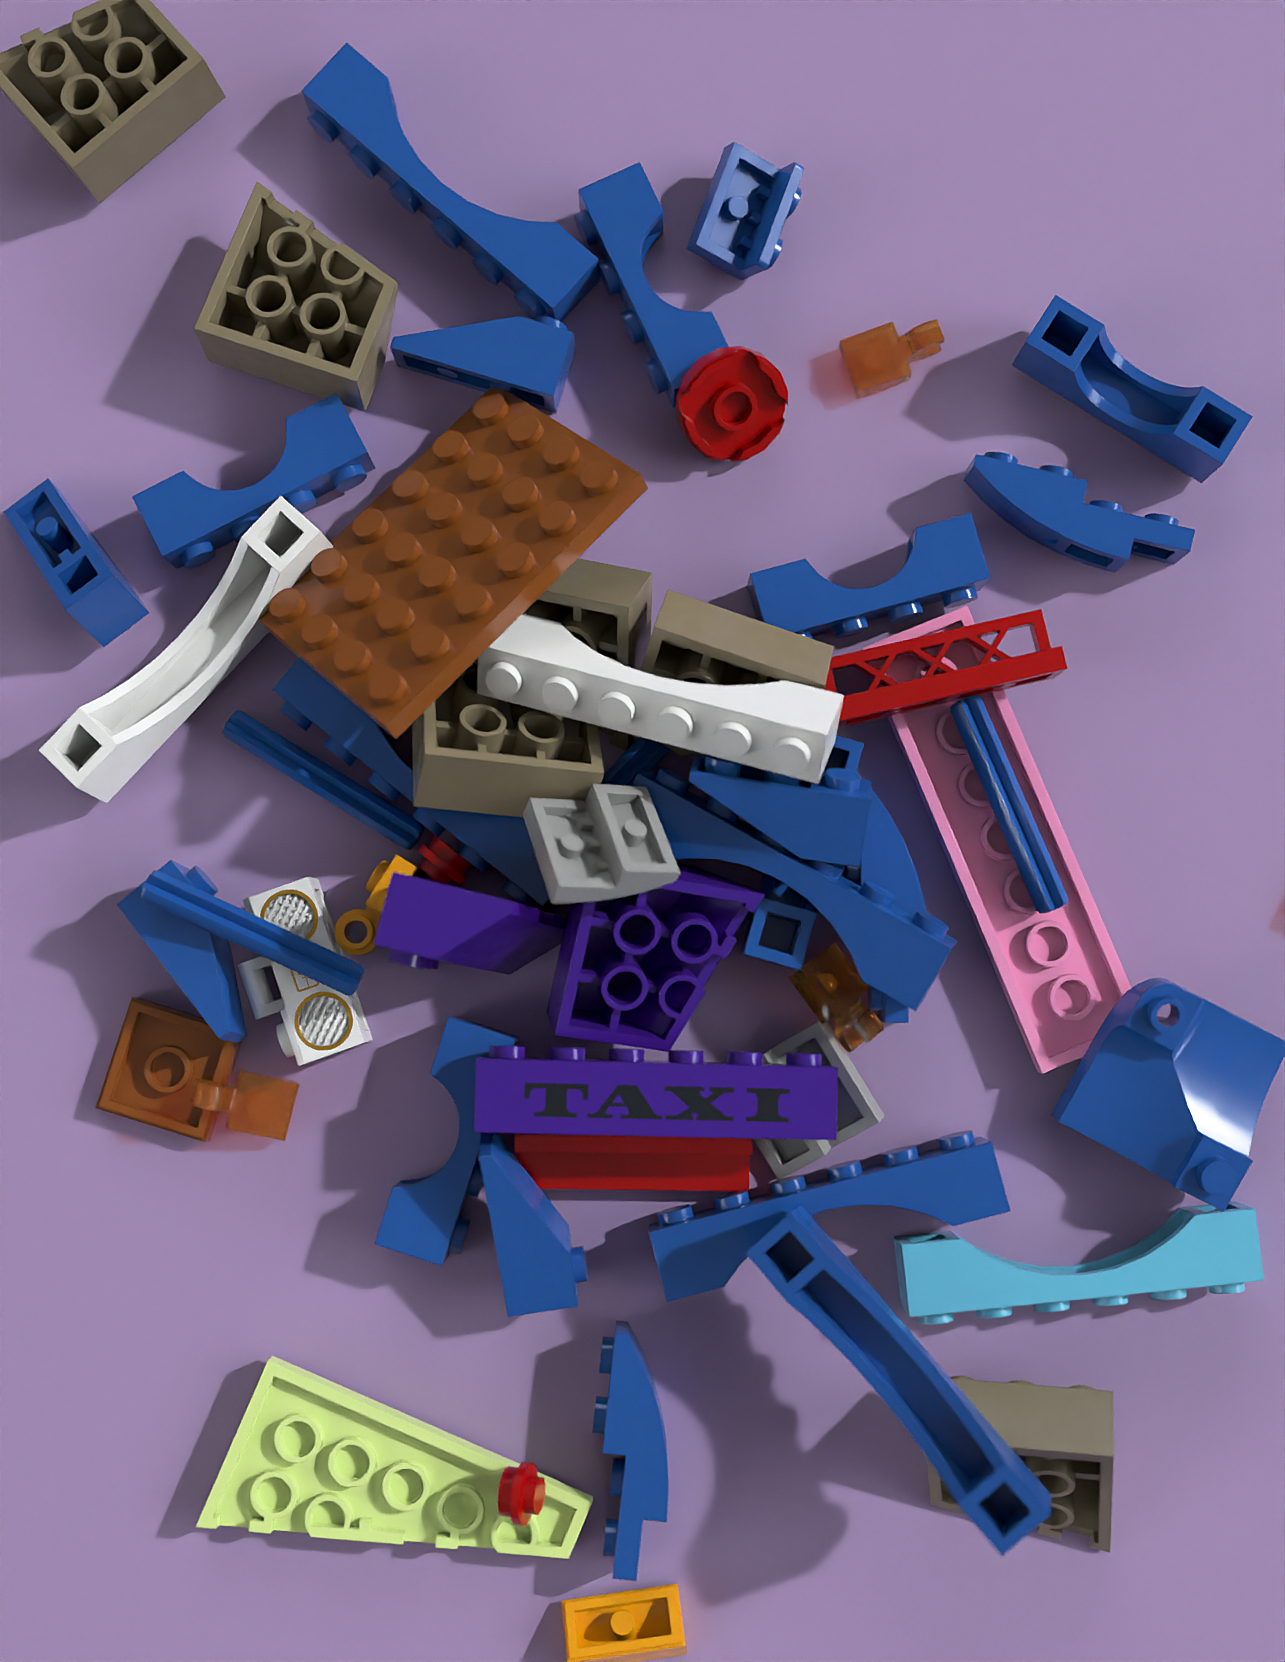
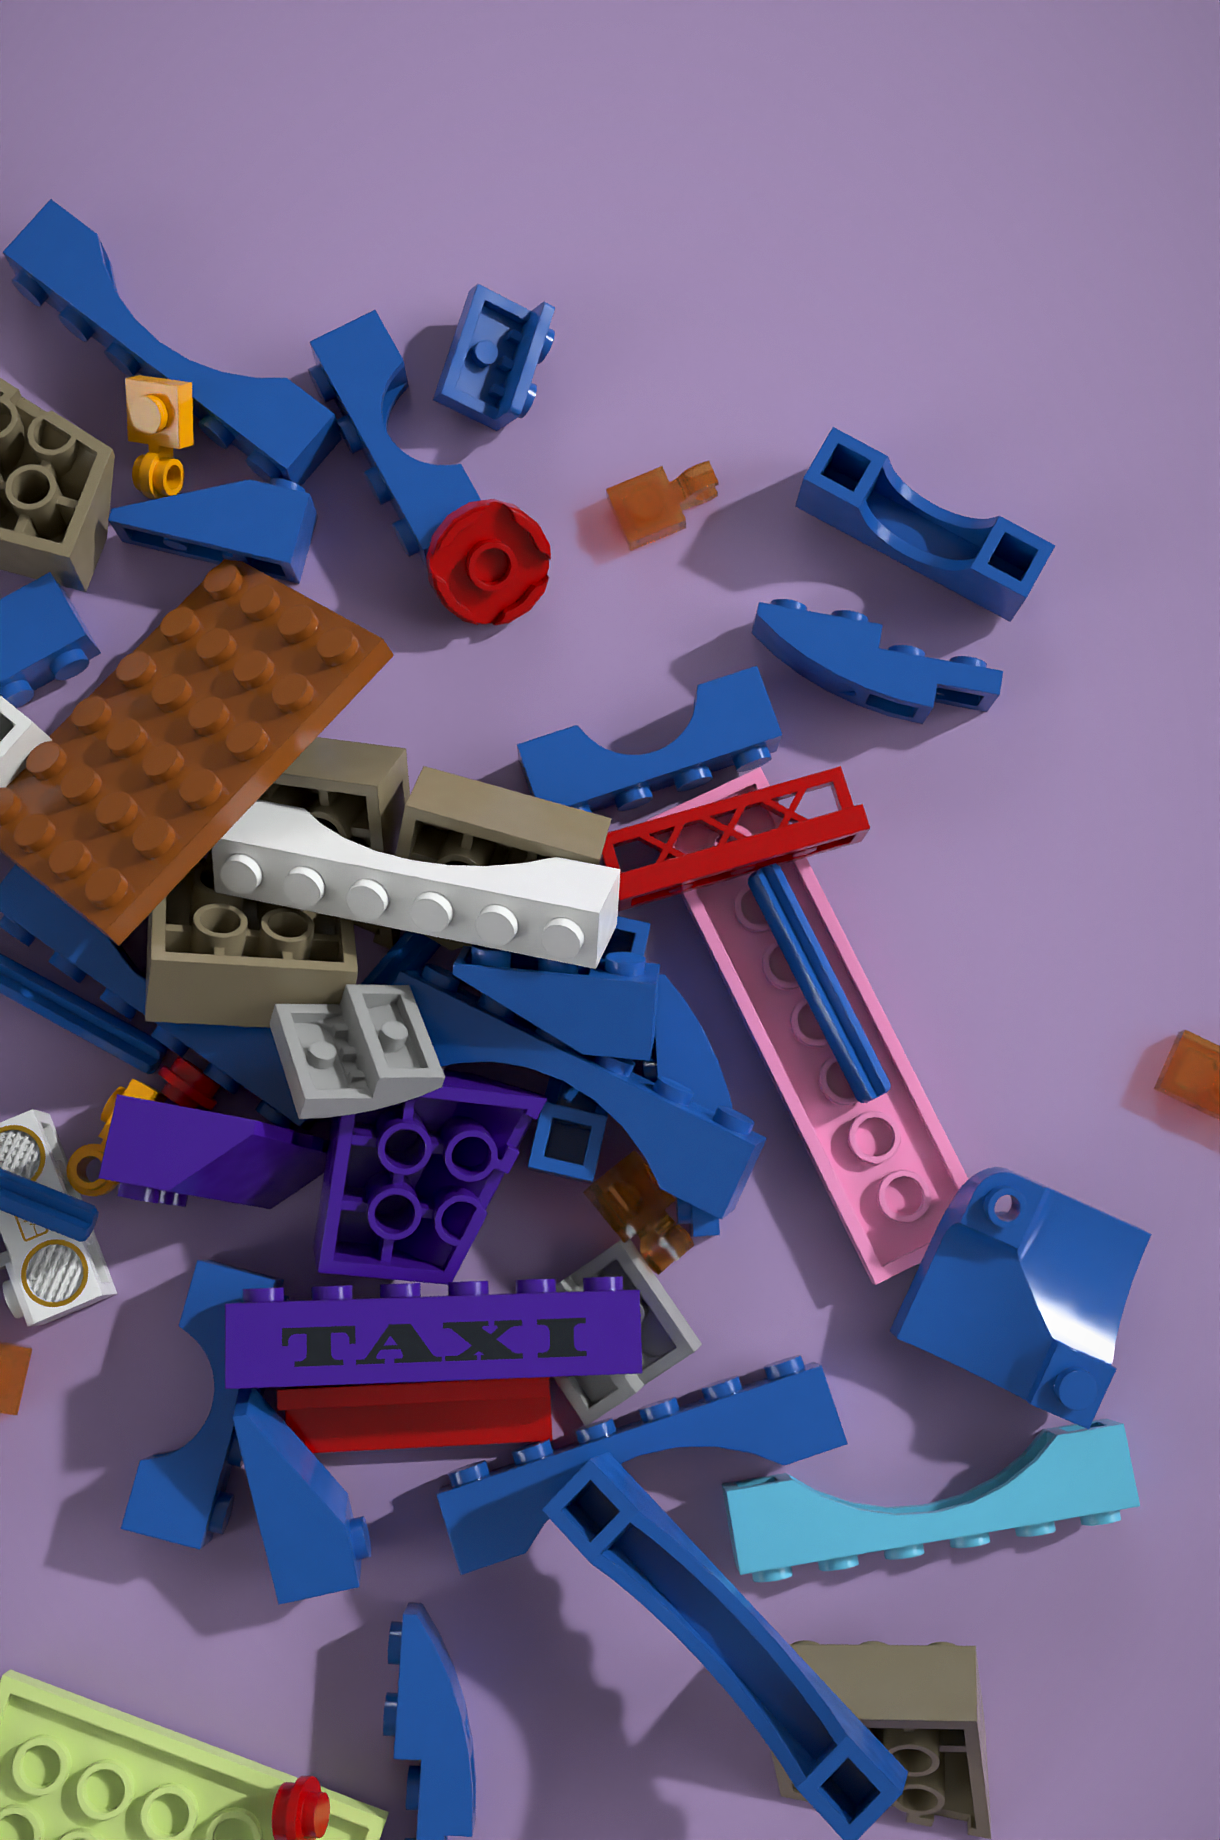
camera: 10 degrees left, 5 degrees down
(442, 256) = (163, 418): none -> light orange plate

